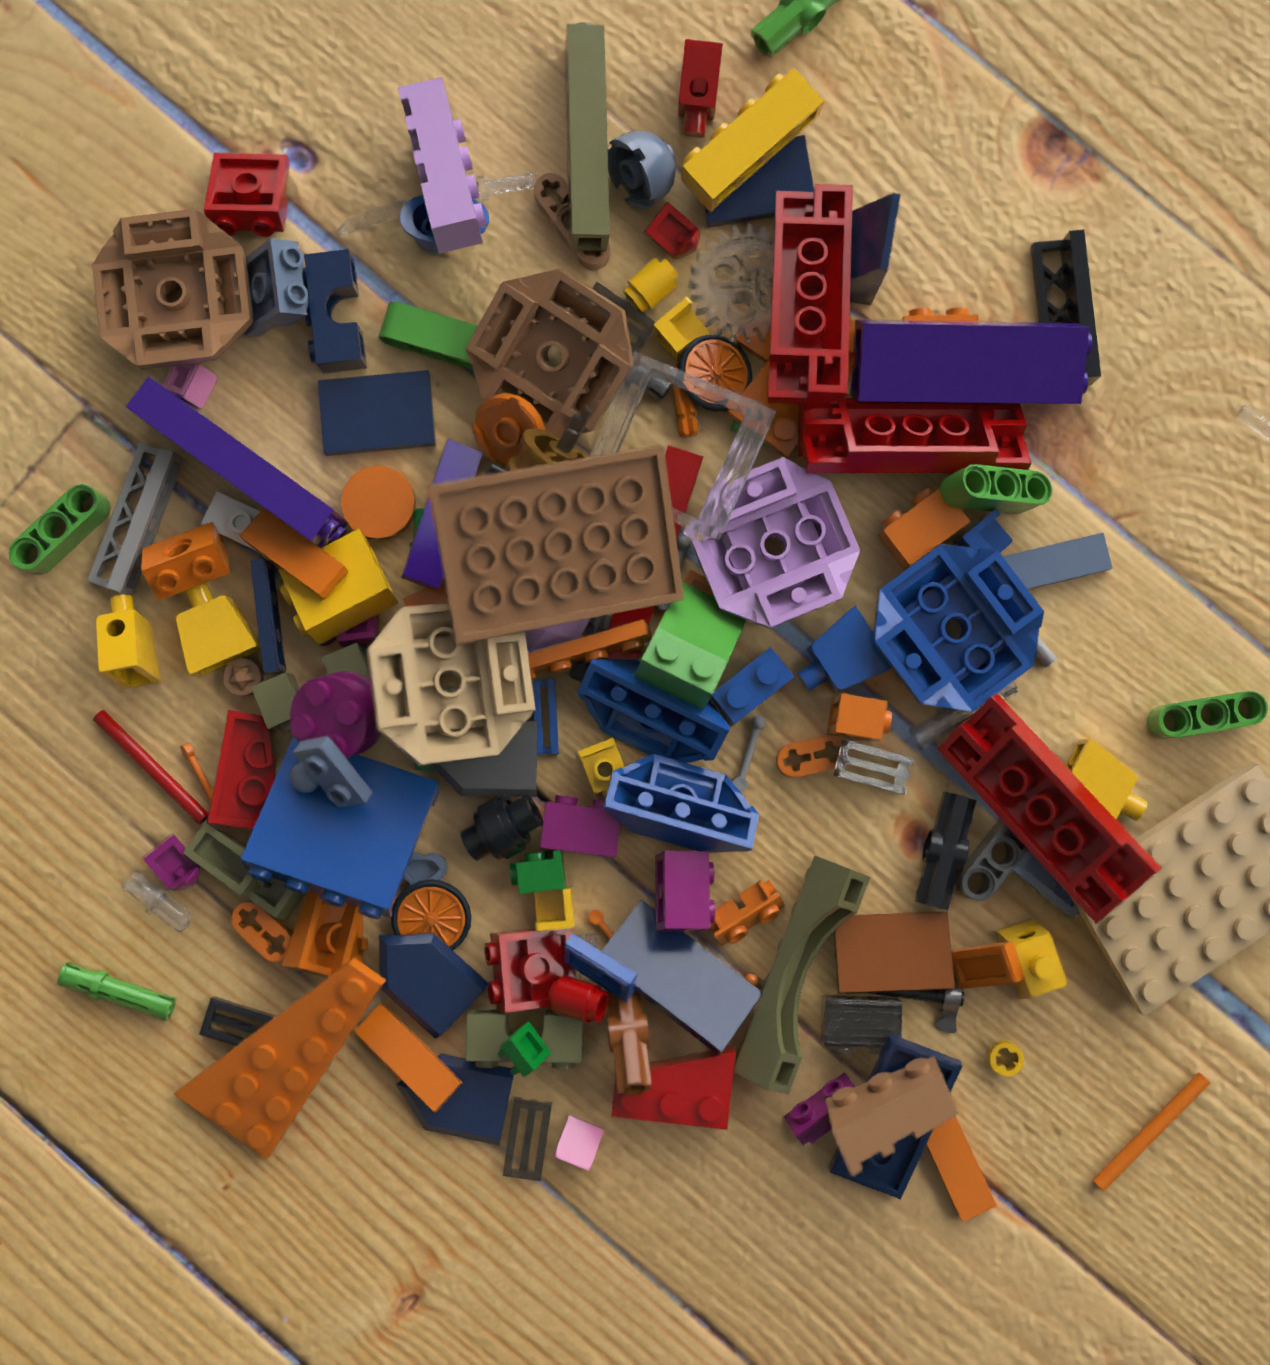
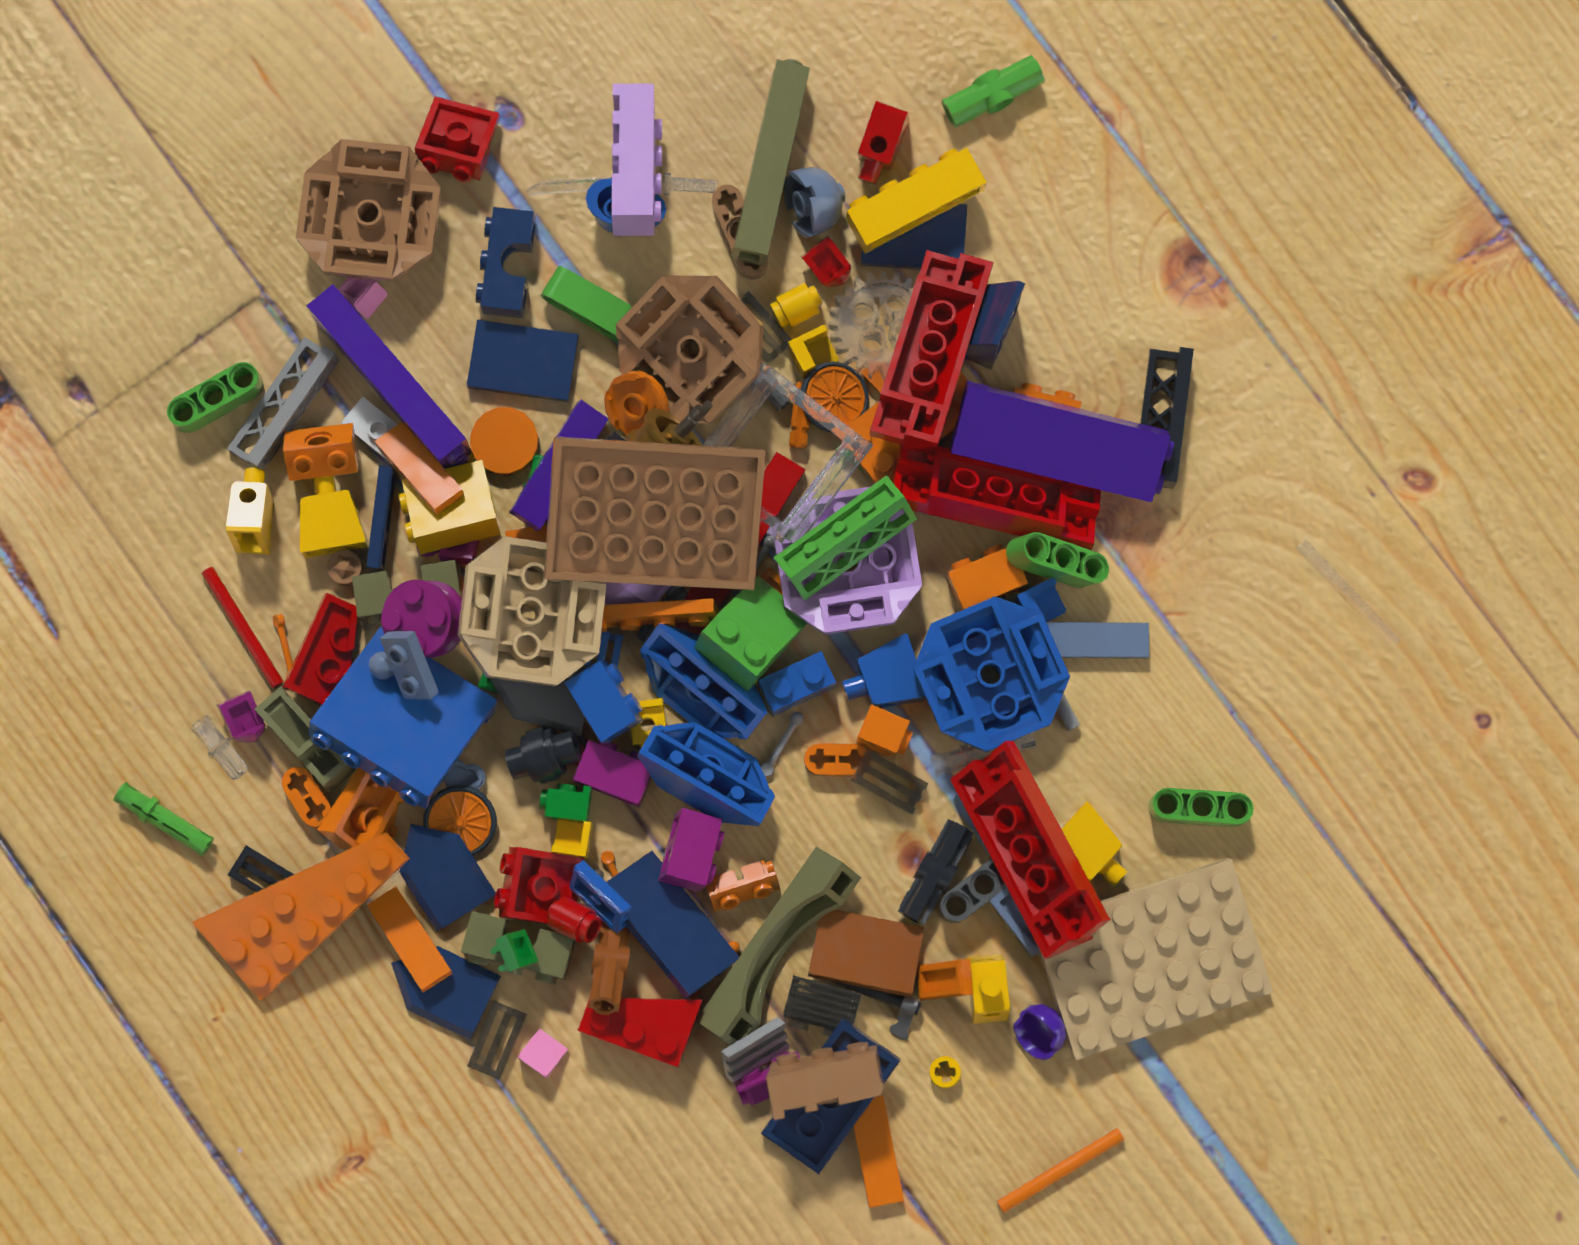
camera: 10 degrees right, 5 degrees down
(276, 285) = (462, 228): sand blue plate -> none
(553, 756) = (605, 700): none -> blue brick
(766, 516) = (842, 534): none -> bright green fence
(803, 1087) = (755, 1049): none -> light grey tile
(1098, 993) = (1040, 1031): none -> dark purple hair

